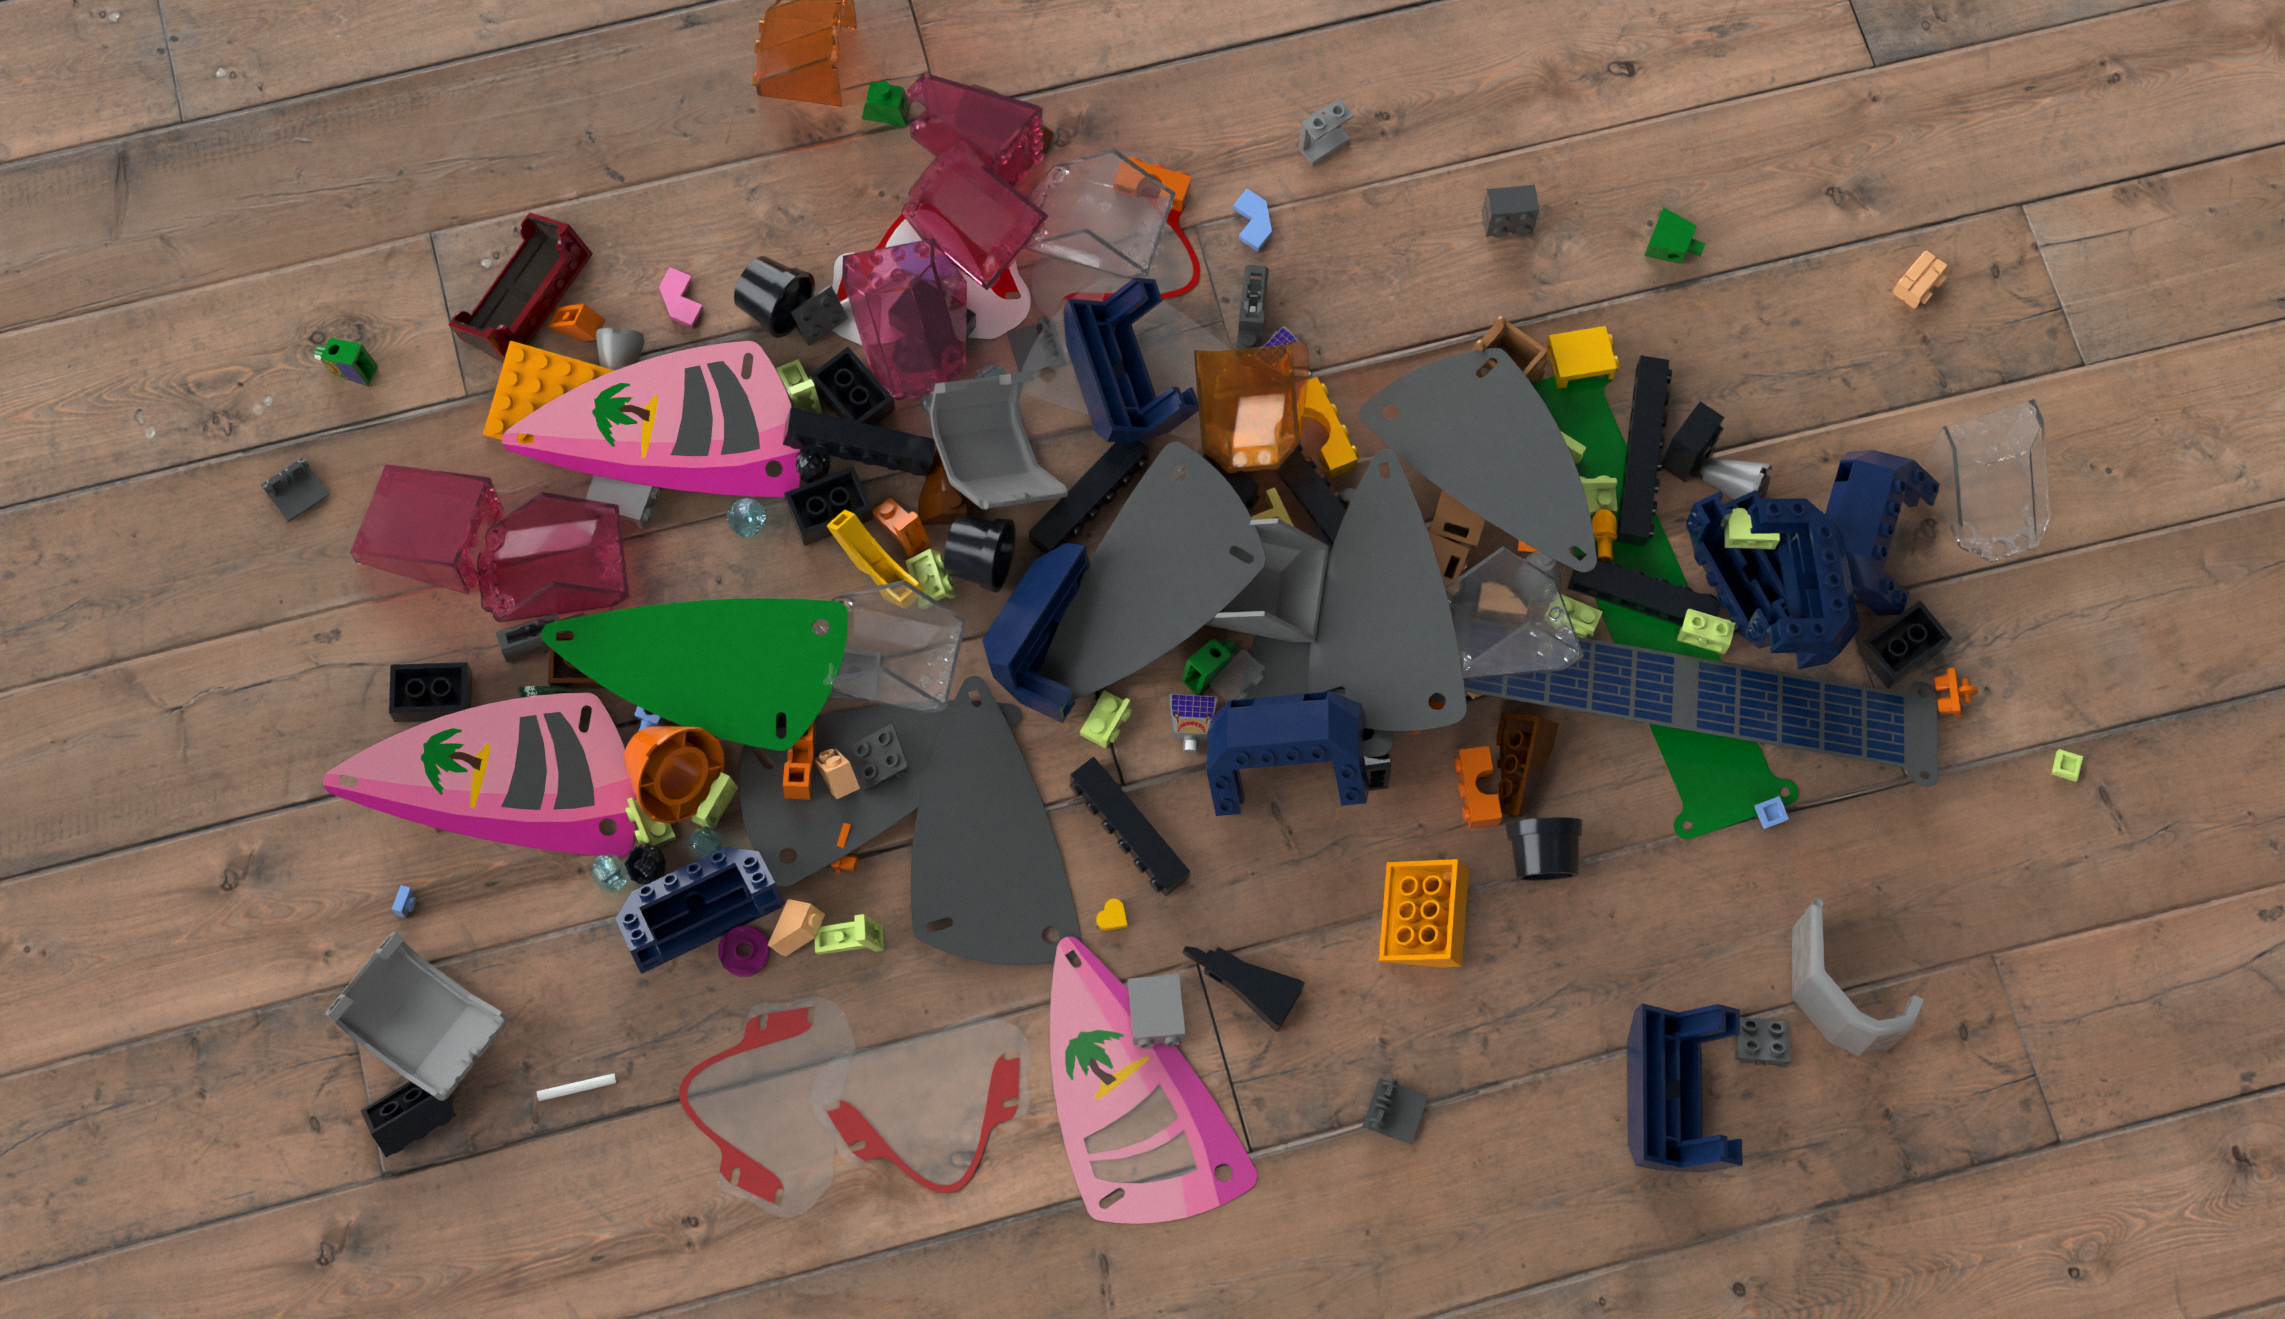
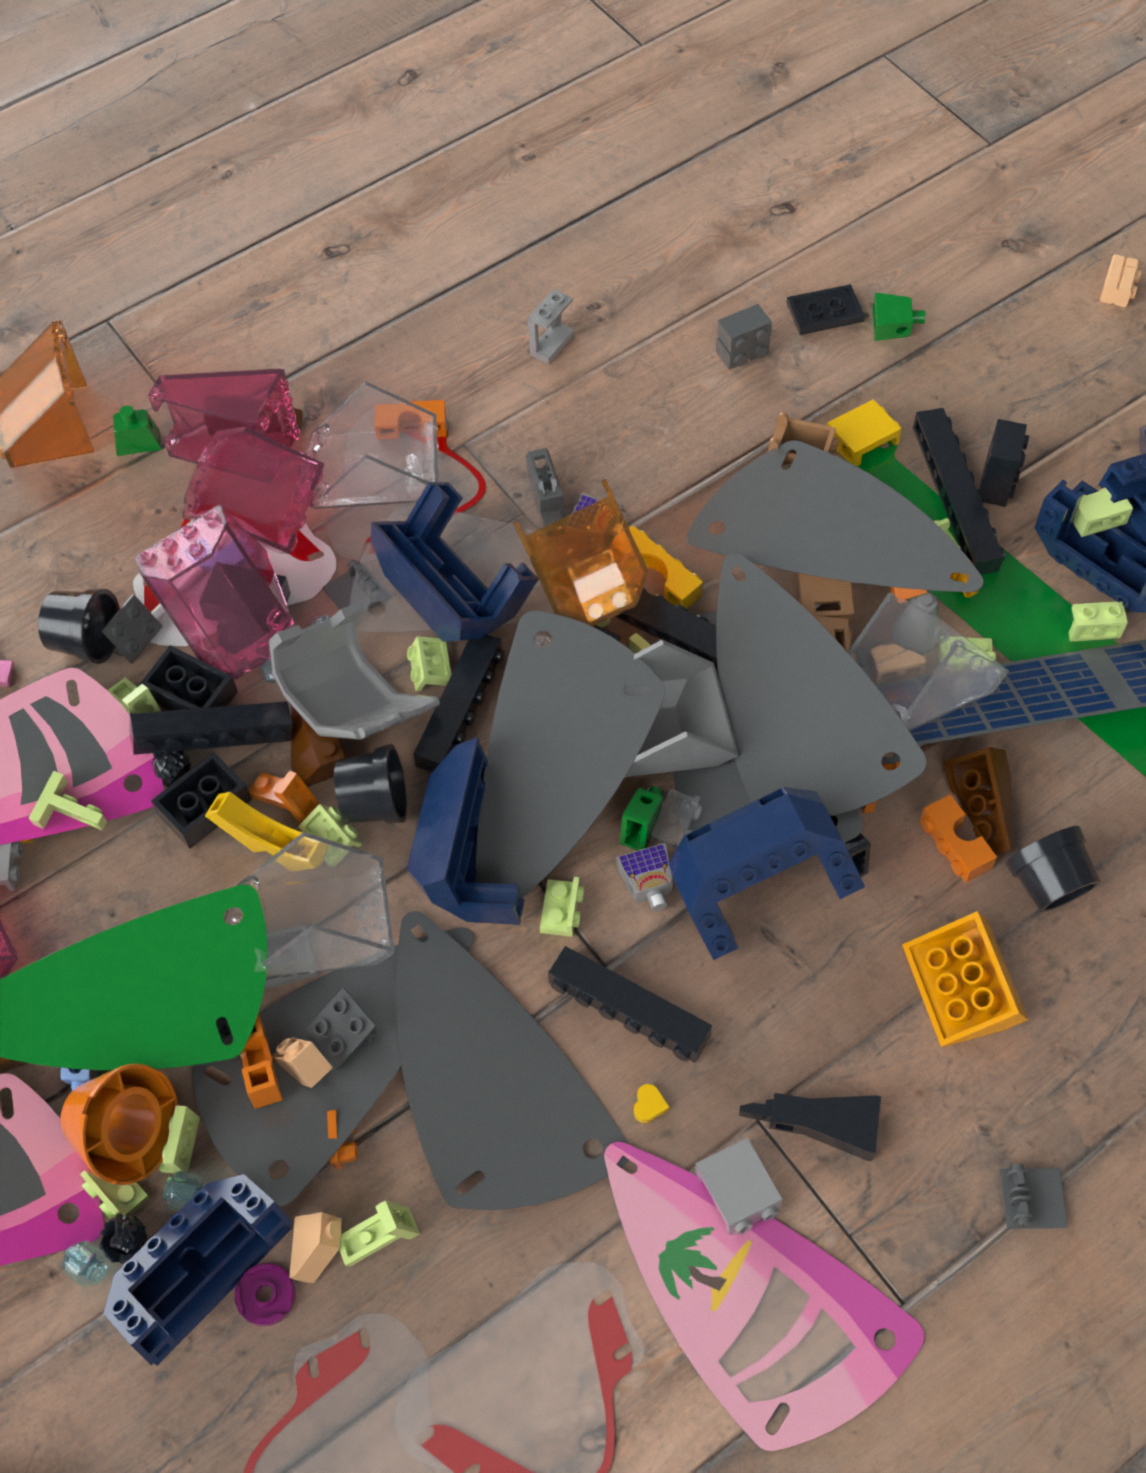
camera: 15 degrees left, 10 degrees down
(709, 470) = (52, 801): none -> yellowish green bracket
(746, 517) = (119, 839): clear light blue piece -> none
(1076, 445) = (429, 662): none -> yellowish green bracket
(1259, 227) = (523, 425): light blue tile -> none
(1610, 203) = (825, 309): none -> black tile
(1641, 593) = (1015, 609): black brick -> none
(1736, 477) = (1040, 483): light grey cone -> none

